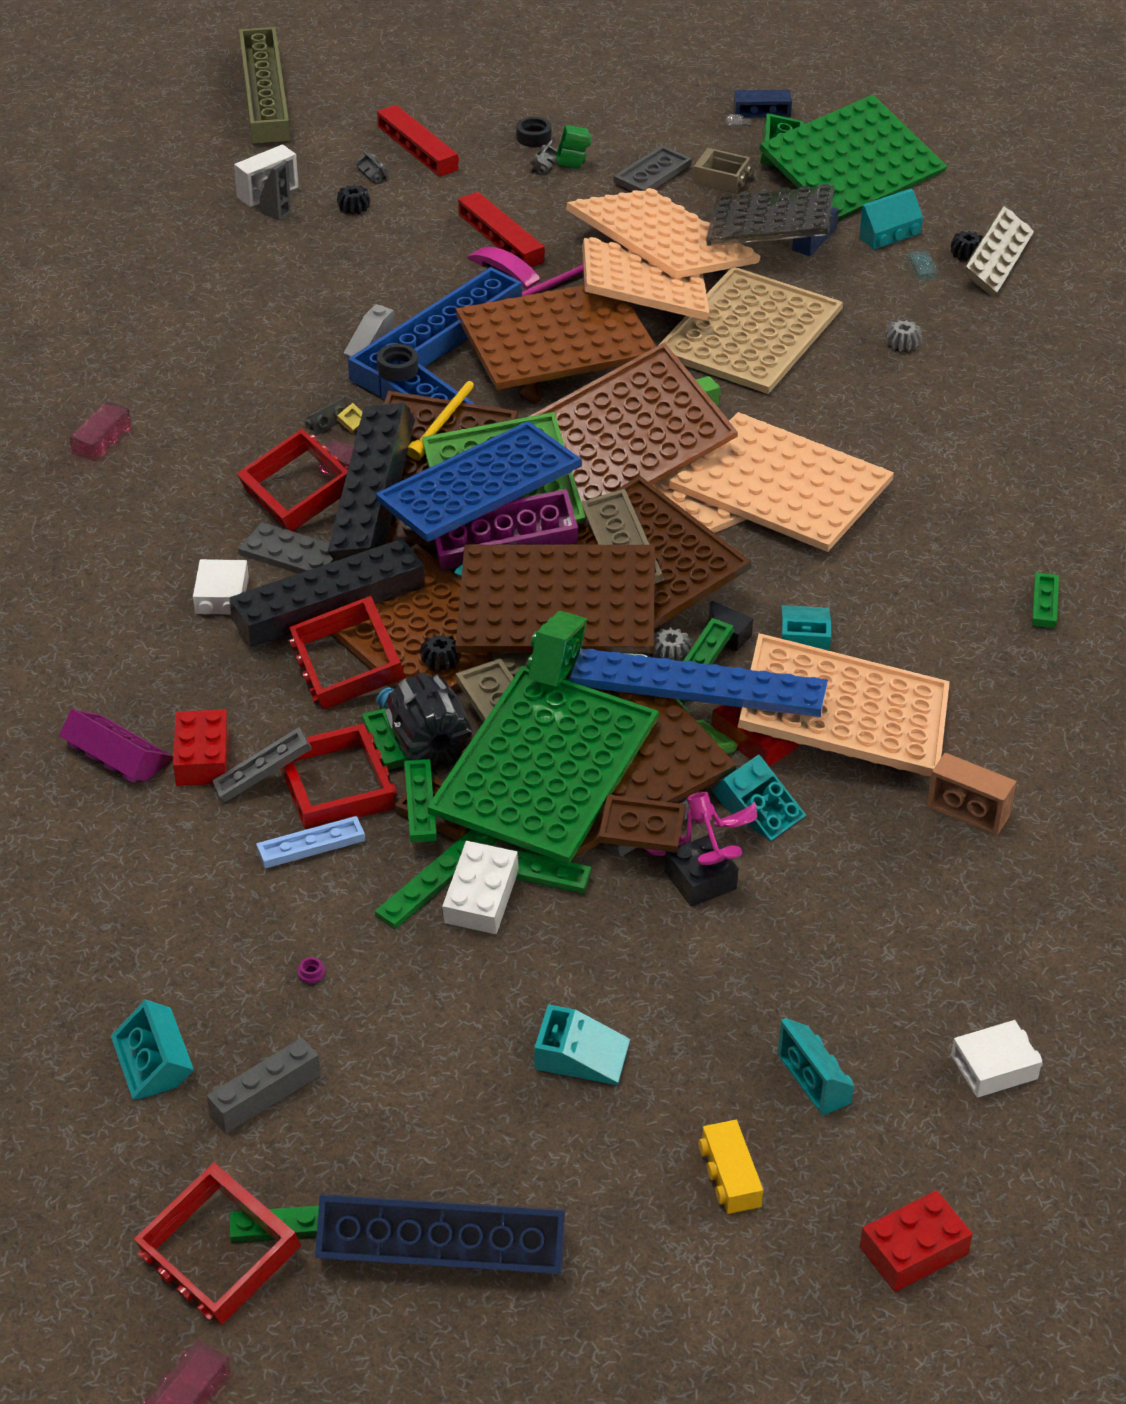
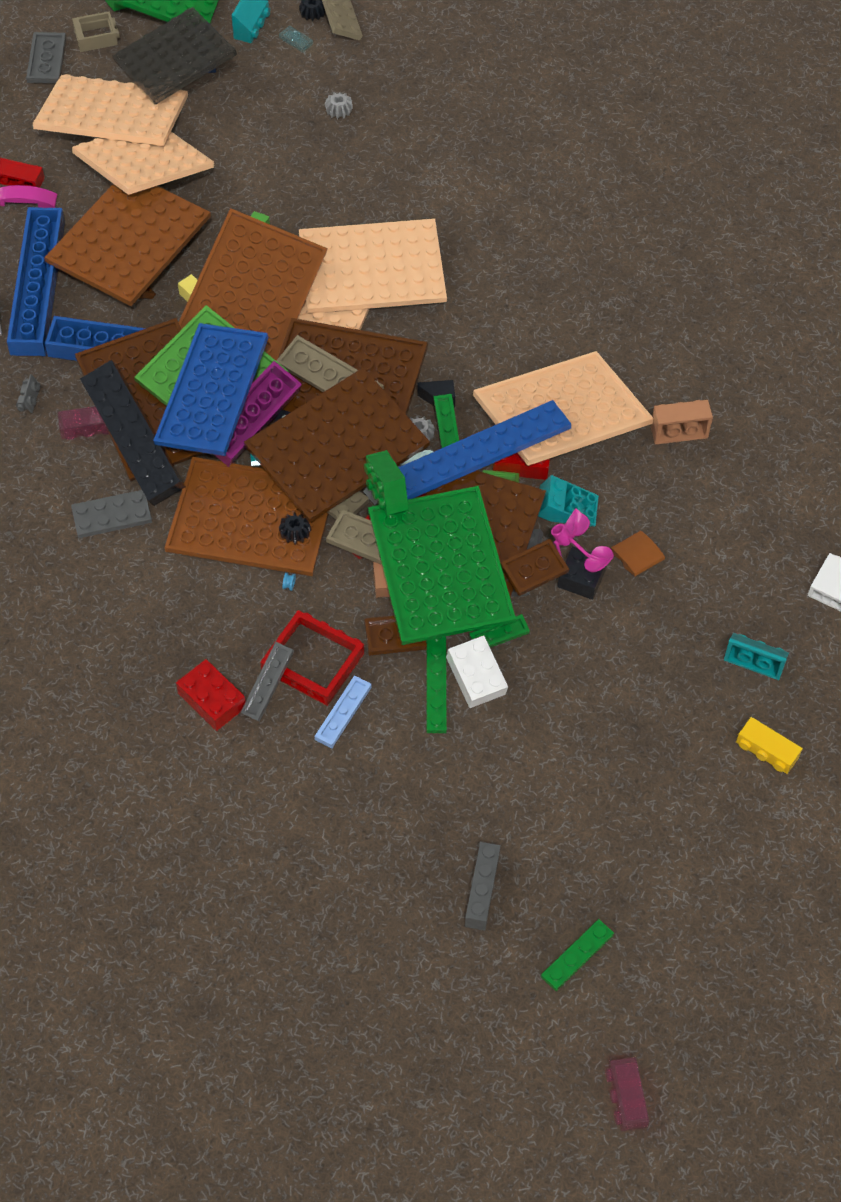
camera: 40 degrees left, 15 degrees up
(113, 745) = (153, 732): magenta slope -> none
(151, 1050) = (395, 914): teal slope -> none
(188, 1202) = (560, 964): red window -> none
(216, 583) = (98, 571): white brick -> none
(274, 607) = (179, 532): black brick -> none
(278, 458) = (45, 427): red window -> none
(311, 964) = (430, 789): magenta plate -> none
(334, 622) = (247, 539): red window -> none
(350, 418) = (48, 385): light yellow plate -> none
(391, 752) = (317, 609): green plate -> none
(395, 372) = (49, 315): black tyre -> none
(416, 448) = (135, 386): yellow piece -> none
(419, 795) = (385, 639): green plate -> none
(428, 719) = (340, 581): black wheel -> none
(440, 1233) = (671, 900): dark blue brick -> none
(555, 281) = (80, 167): dark pink piece -> none
(579, 1046) = (625, 733): teal slope -> none
(752, 329) = (246, 153): tan plate -> none
(788, 891) = (638, 553): none -> dark orange slope
(806, 626) = (484, 365): teal slope -> none
(1045, 600) = (595, 258): green plate -> none

